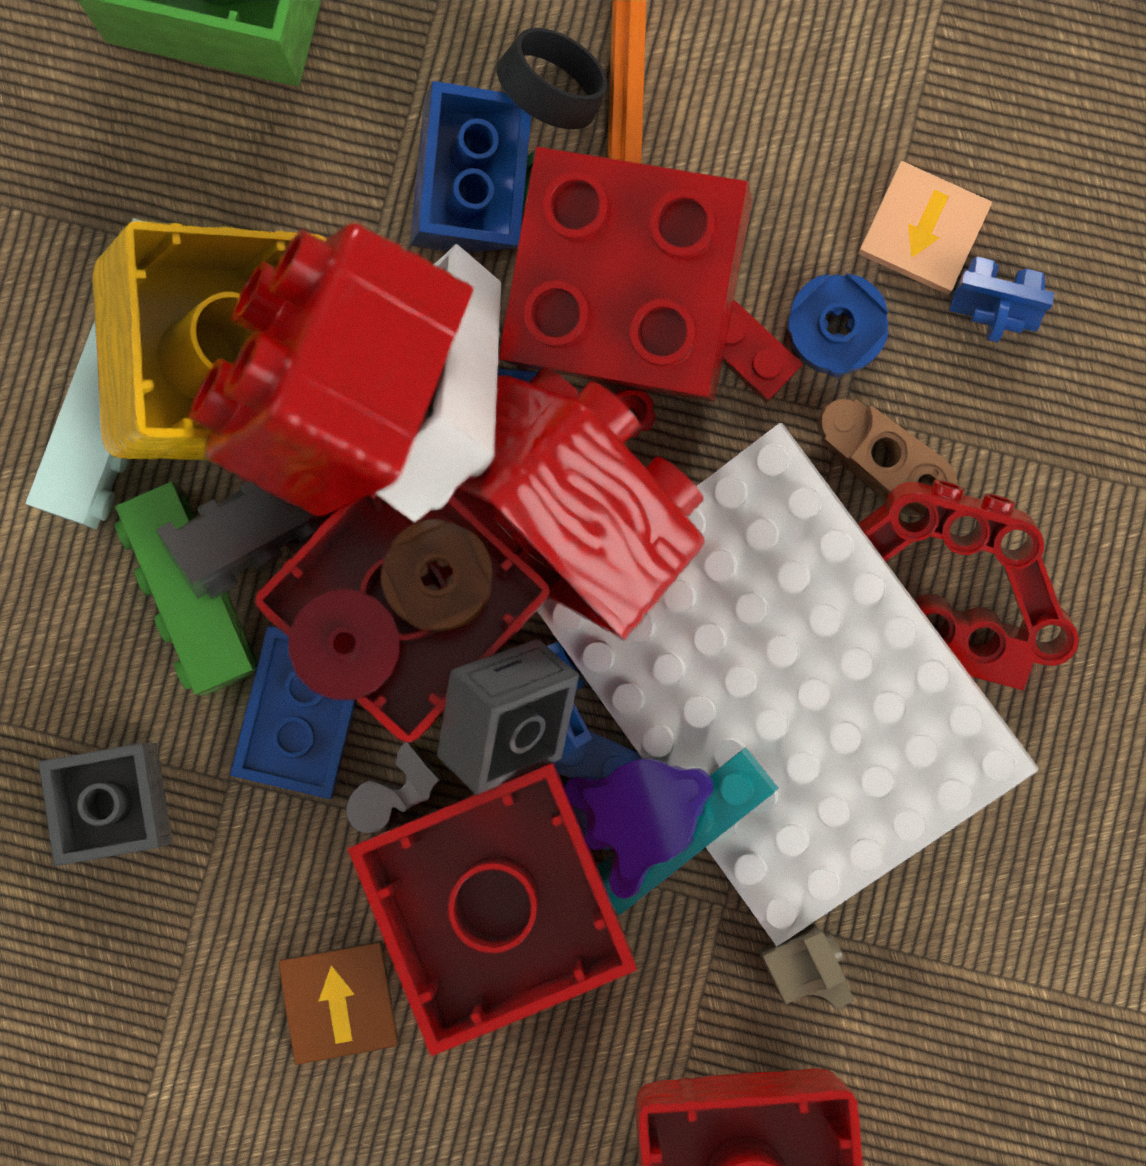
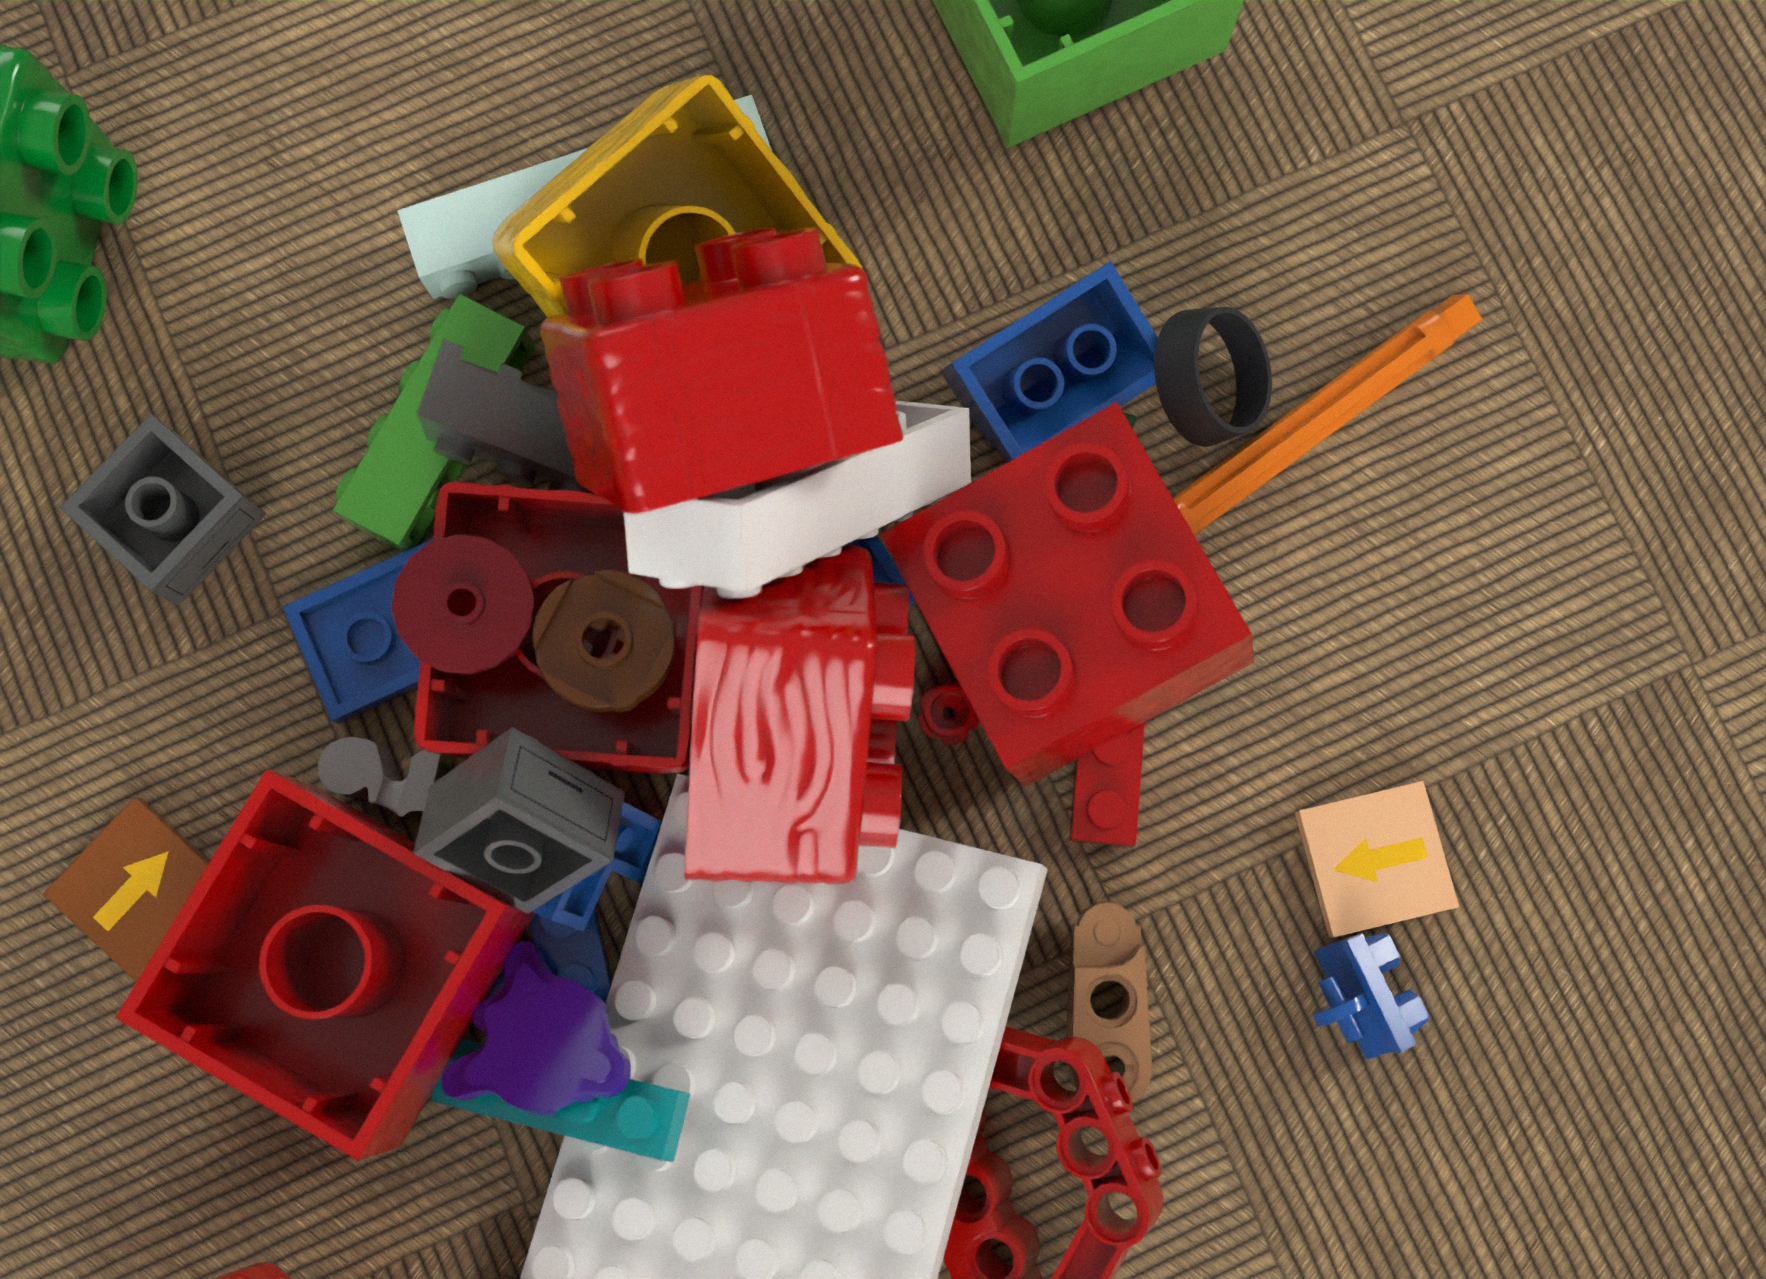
camera: 50 degrees right, 5 degrees down
(837, 295) = (1176, 872): blue plate -> none

